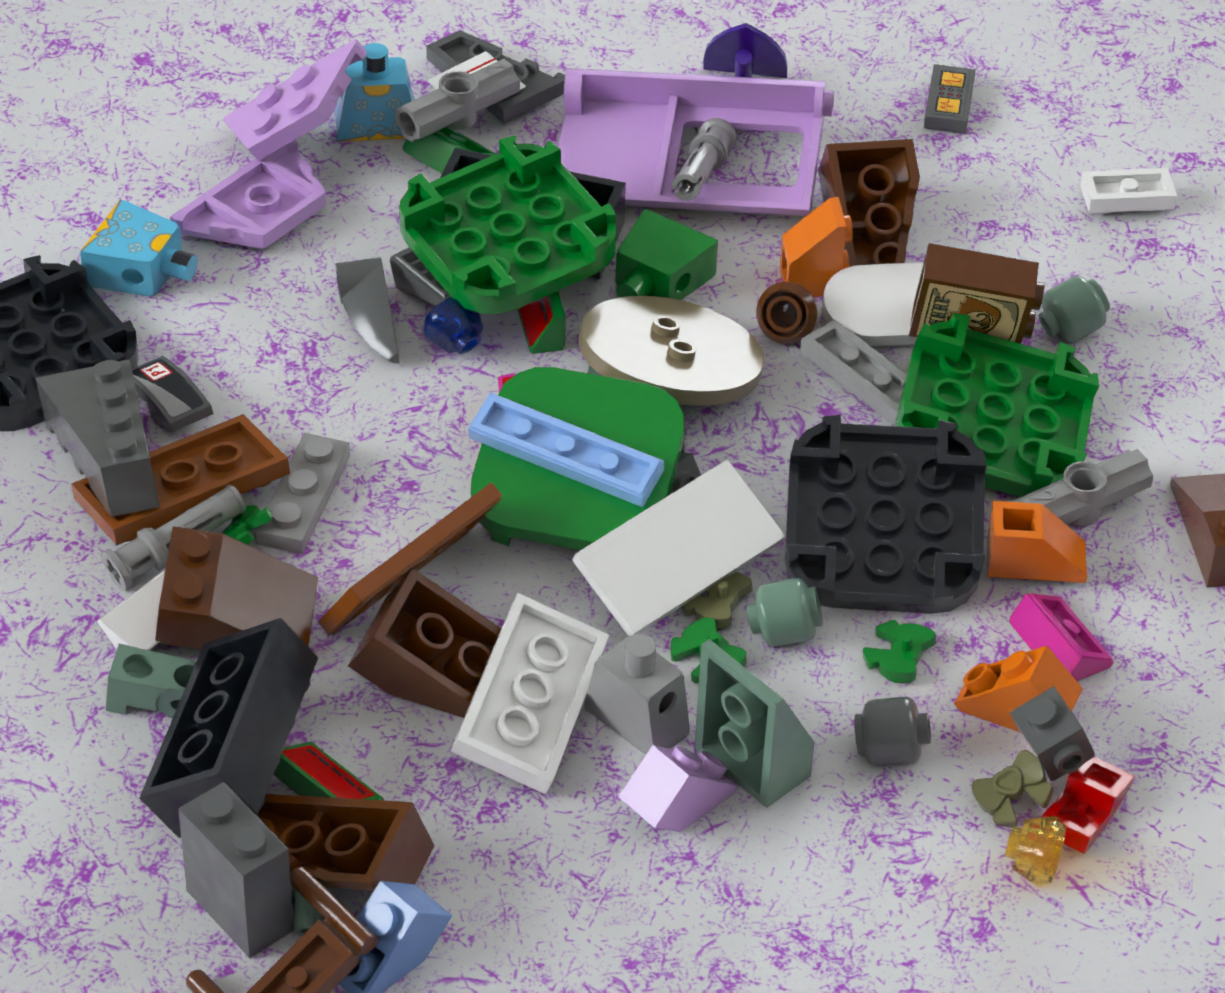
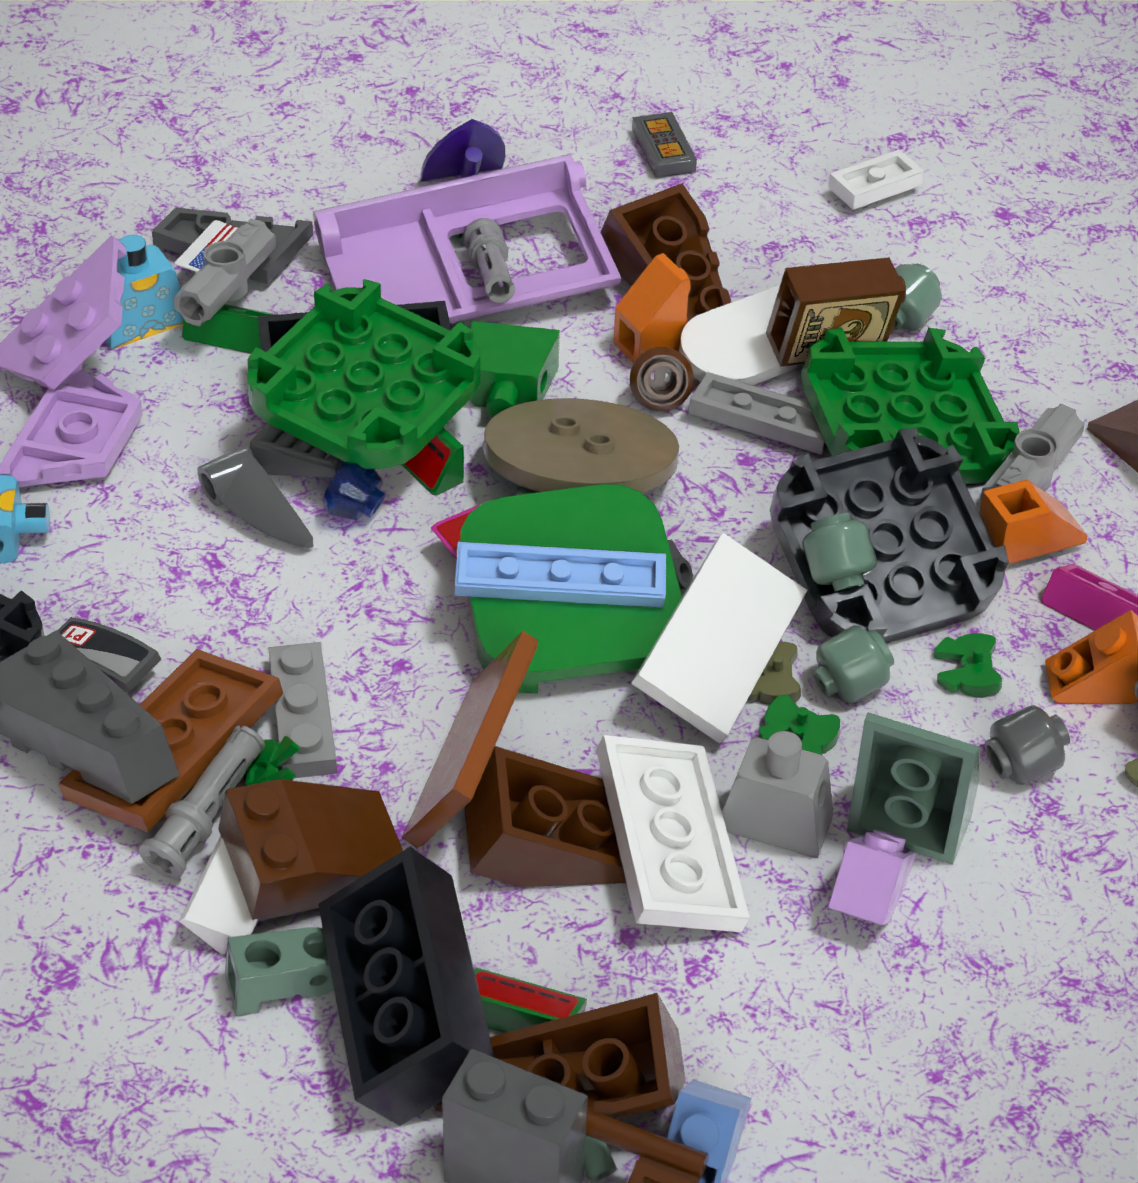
camera: 25 degrees left, 0 degrees up
(821, 509) = (839, 552): none -> sand green head

